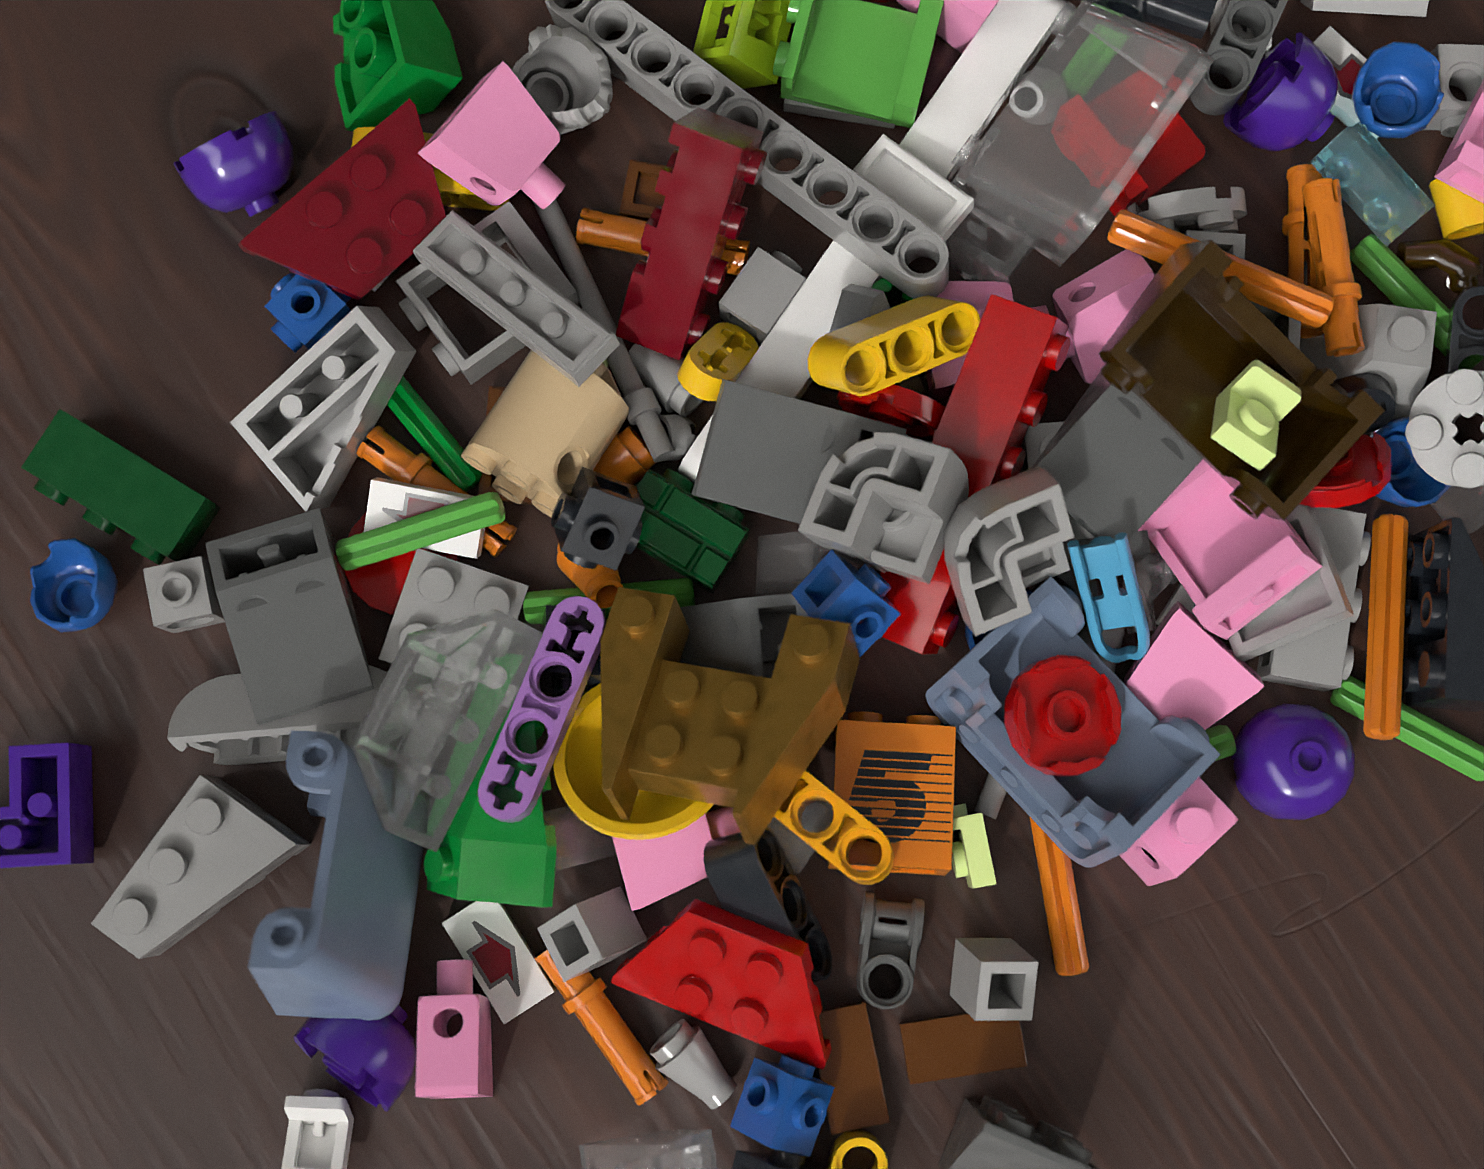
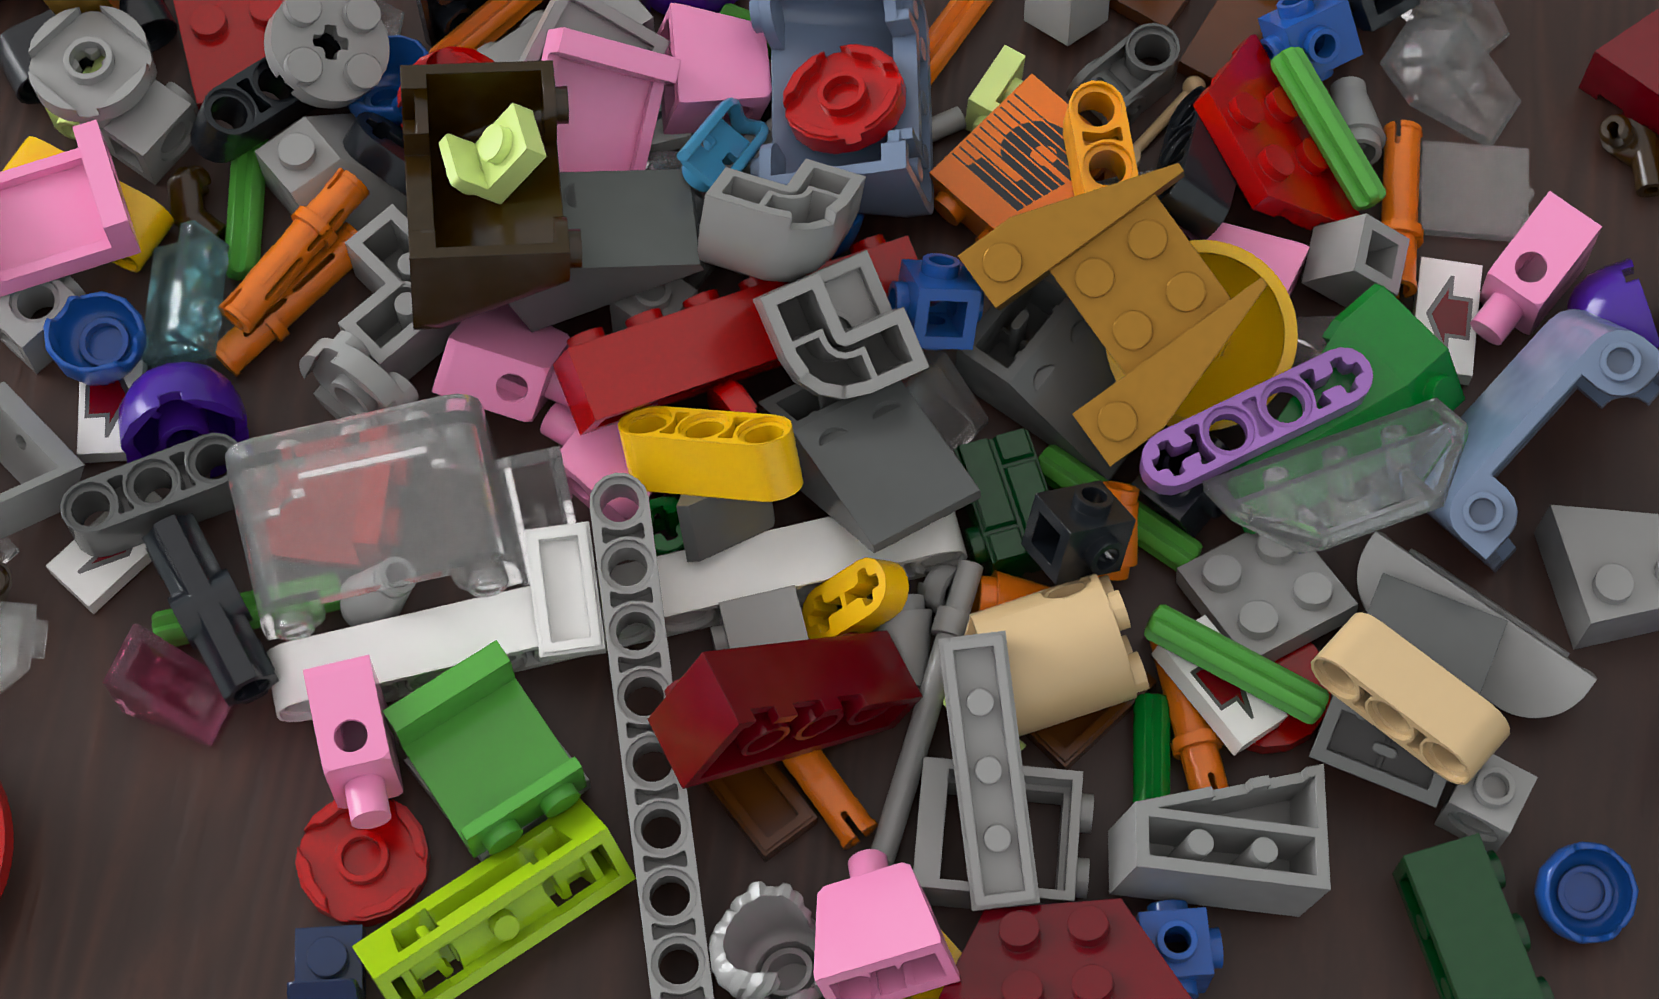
camera: 140 degrees left, 15 degrees down
(268, 584) = (1410, 698): none -> tan beam
(562, 1092) = (1473, 190): none -> clear piece
(699, 1026) = (1328, 128): none -> bright green axle
(836, 895) = (1162, 121): none -> tan hinge
(1259, 286) = (387, 299): orange axle -> none

